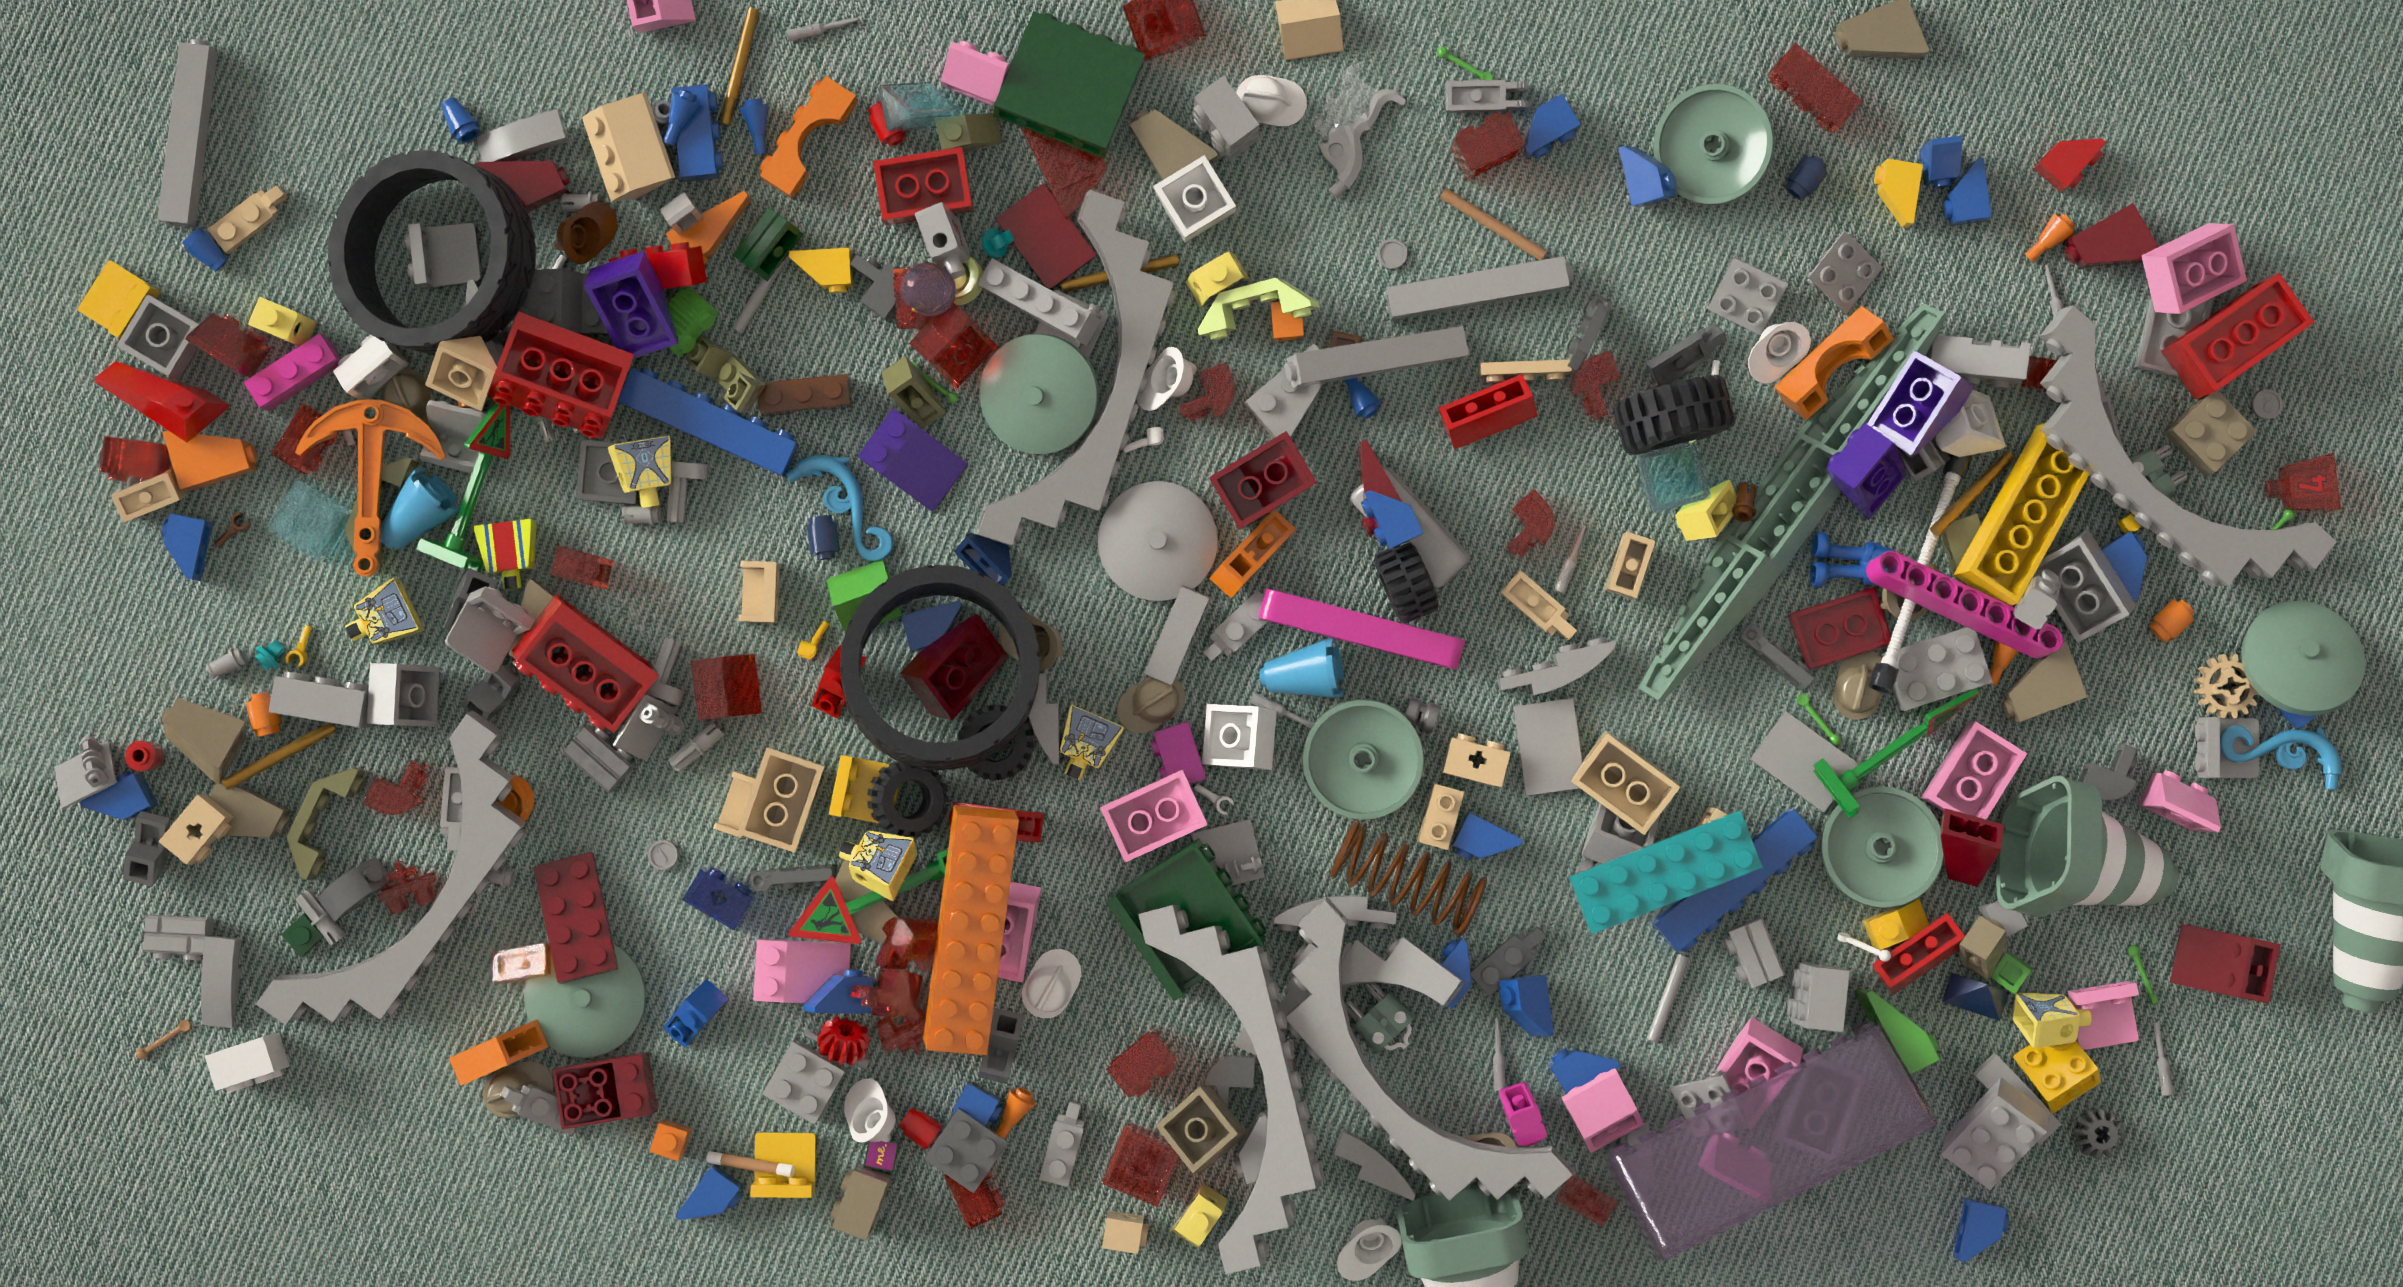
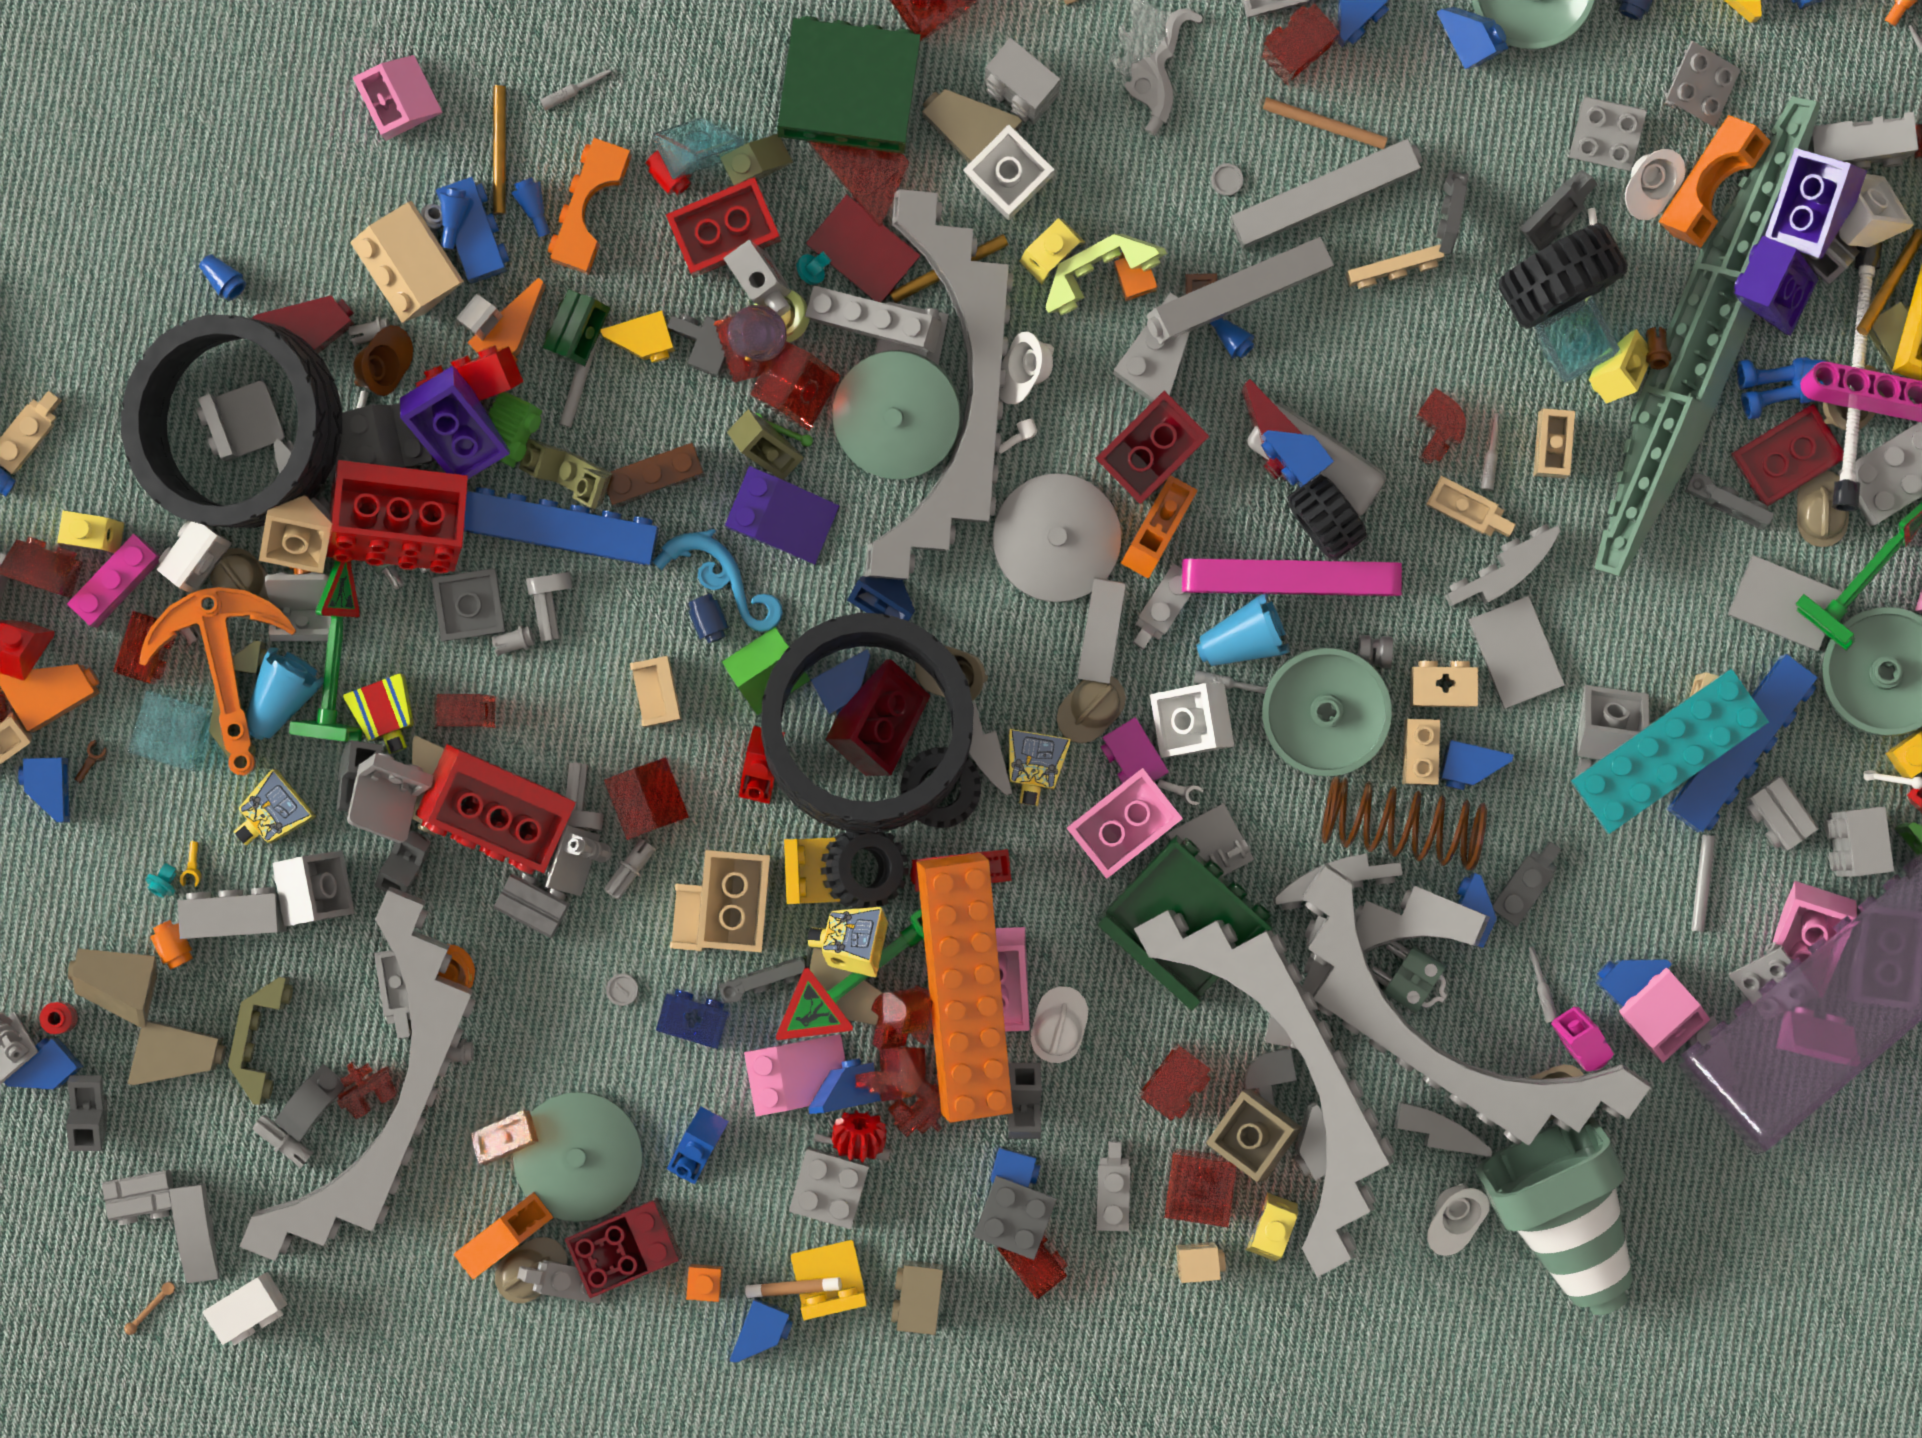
camera: 10 degrees left, 0 degrees up
(181, 837) = (120, 1091): tan brick -> none
(227, 663) = (119, 901): light grey pin -> none
(278, 755) = (198, 983): pearl gold bar -> none
(302, 935) = (268, 1164): dark green plate -> none
(399, 798) = (334, 998): clear red brick -> none
(523, 137) = (293, 278): light grey slope -> none
(575, 918) = (548, 1076): dark red plate -> none
(643, 467) = (504, 591): torso -> none
(809, 649) = (721, 739): yellow hand -> none
(868, 1112) = (903, 1203): white piece -> none
(882, 1155) = (926, 1244): magenta tile -> none
(920, 1128) = (961, 1207): red brick -> none
(974, 72) = (748, 97): bright pink slope -> none
(1017, 1106) = (1055, 1159): orange cone -> none
(1219, 393) = (1083, 369): clear red brick -> none
(1273, 99) = (1064, 48): white piece -> none
(1488, 411) = (1368, 319): red brick -> none
(1528, 1003) = (1560, 924): blue slope -> none
(1587, 1200) = (1670, 1112): clear red hips -> none
(1592, 375) = (1467, 254): clear red brick -> none
(1625, 782) = (1604, 669): tan slope -> none
(1803, 700) = (1768, 540): bright green hinge -> none

